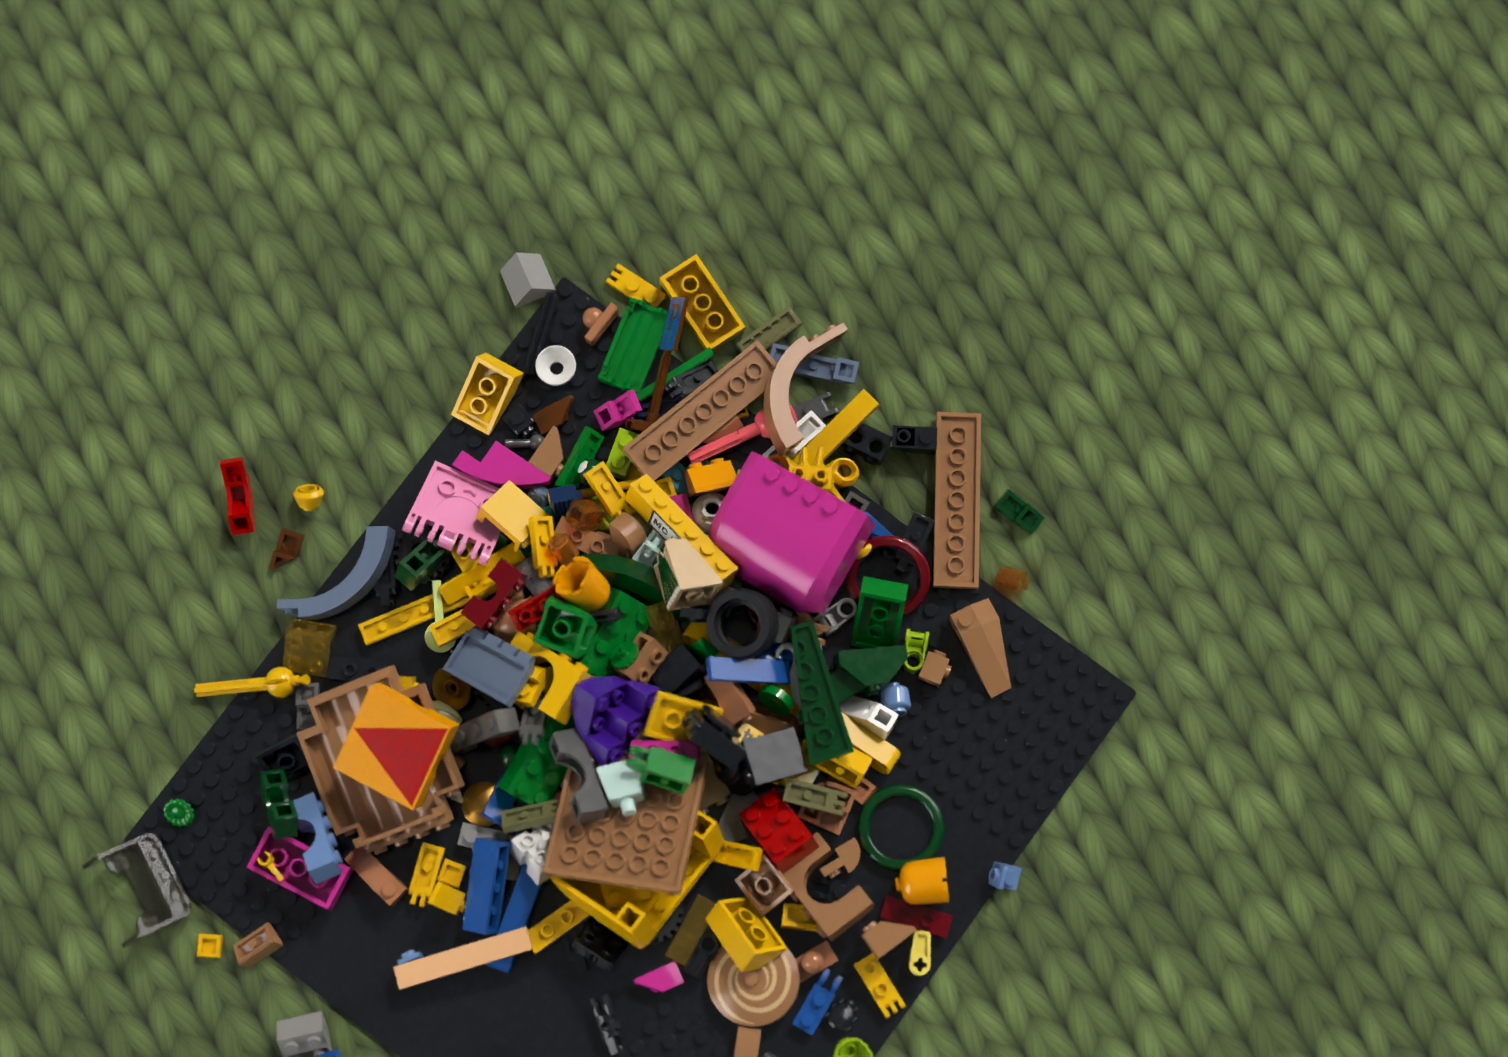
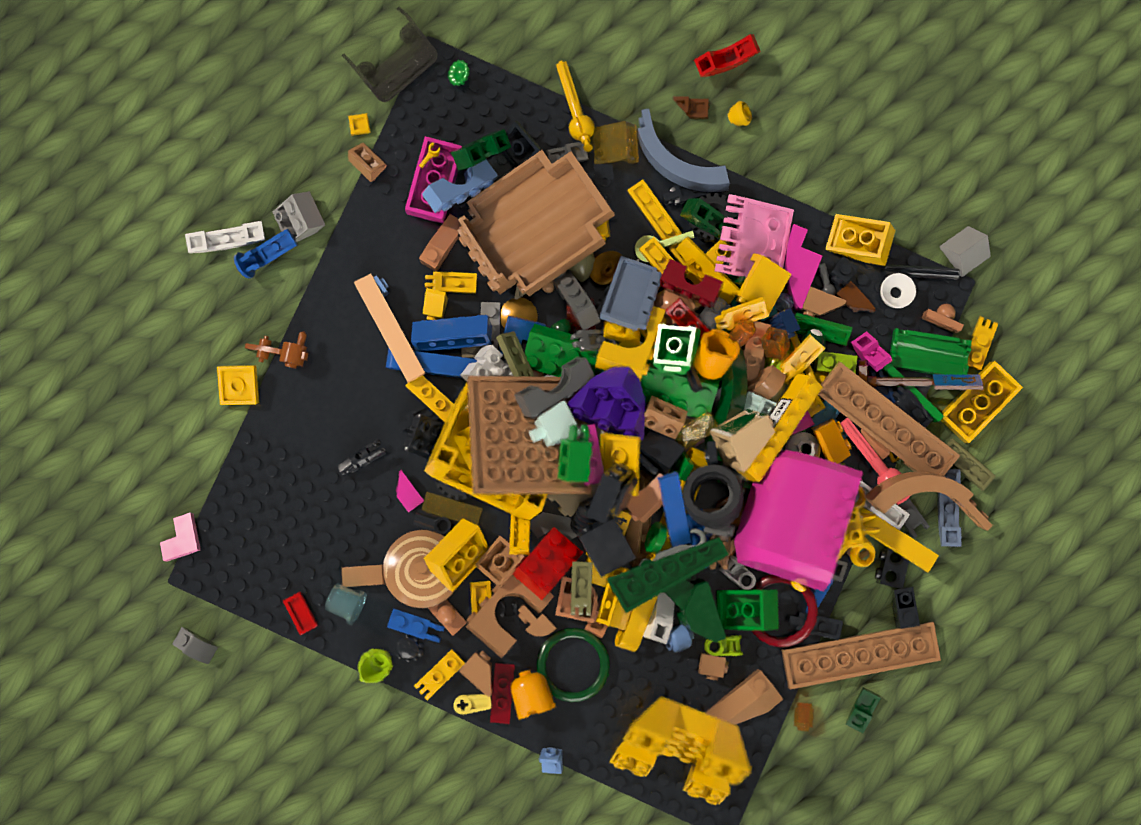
camera: 70 degrees right, 5 degrees up
(395, 746) = (547, 231): light orange tile -> none
(452, 873) = (457, 303): yellow tile -> none
(624, 655) = (664, 402): green piece -> none
(1009, 706) = (692, 736): none -> yellow slope

